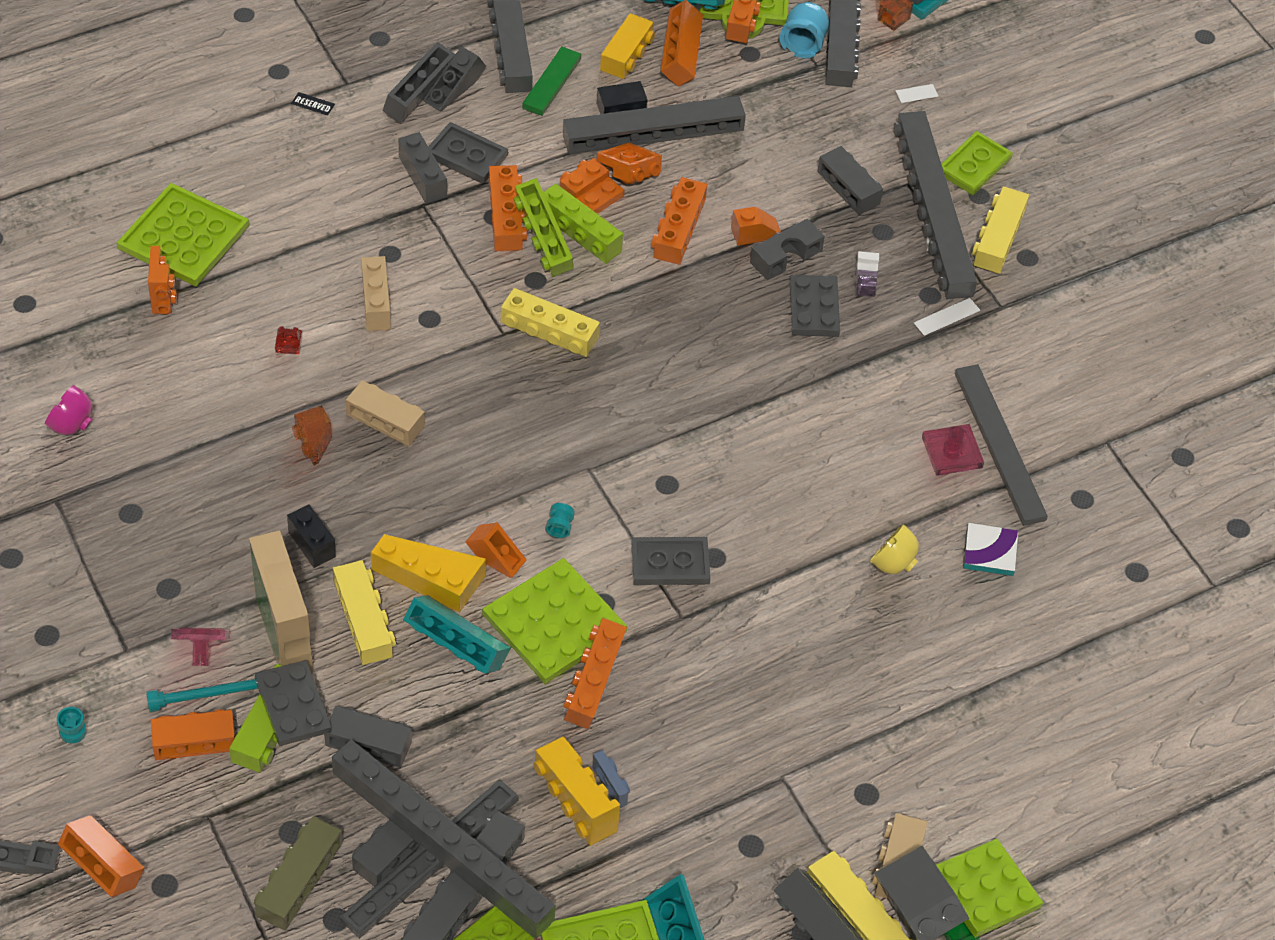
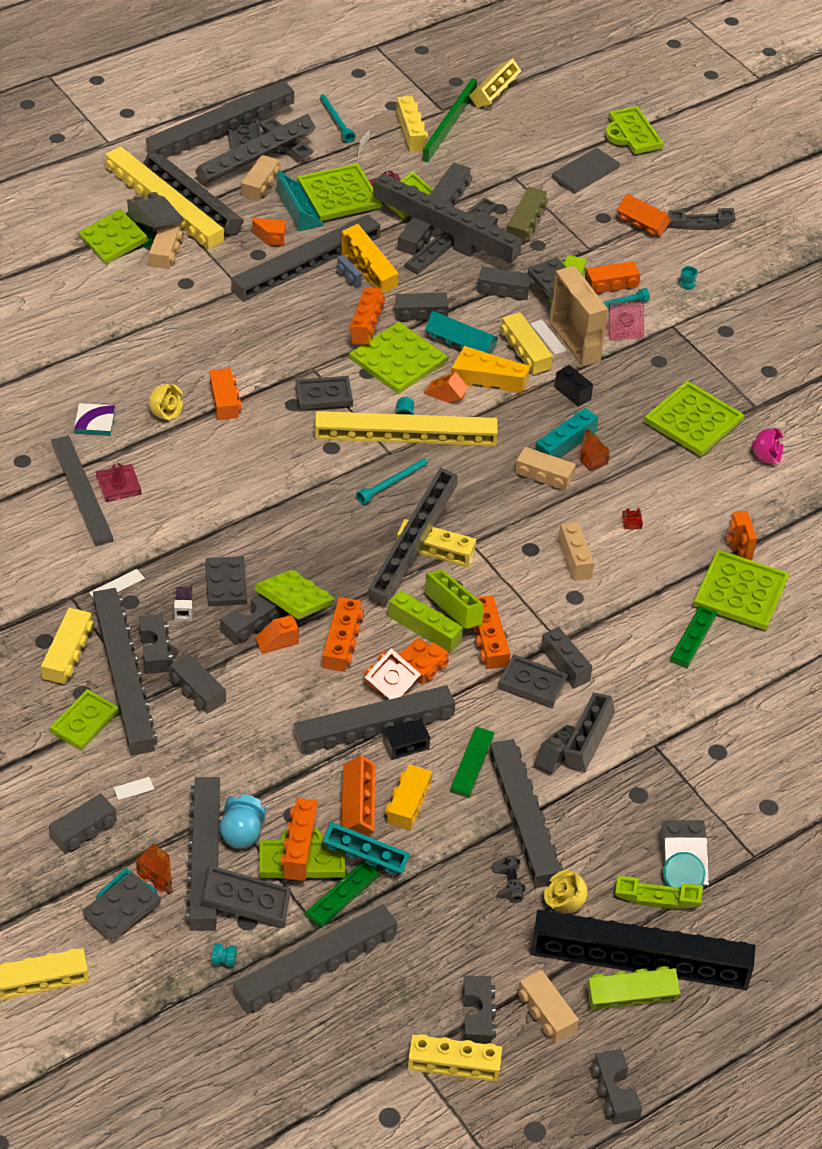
camera: 175 degrees right, 5 degrees down
(154, 476) = (694, 418): none -> lime plate
(264, 187) = (693, 637): none -> green tile
(312, 103) = (677, 722): black sticker -> none
(323, 647) = (548, 337): none -> white sticker
(344, 454) = (568, 434): none -> teal brick
(507, 700) = (420, 305): none -> dark grey brick
(549, 486) = (406, 428): none -> light yellow brick
(581, 294) = (412, 537): none -> dark grey brick
(631, 398) = (365, 495): none -> teal piece
(673, 815) = (297, 261): none -> dark grey brick
(730, 875) = (270, 231): none -> orange slope
(734, 263) = (294, 594): none -> lime plate
(811, 566) = (225, 394): none -> orange brick
(900, 243) = (156, 655): none -> dark grey arch
(968, 53) = (82, 823): none -> dark grey brick

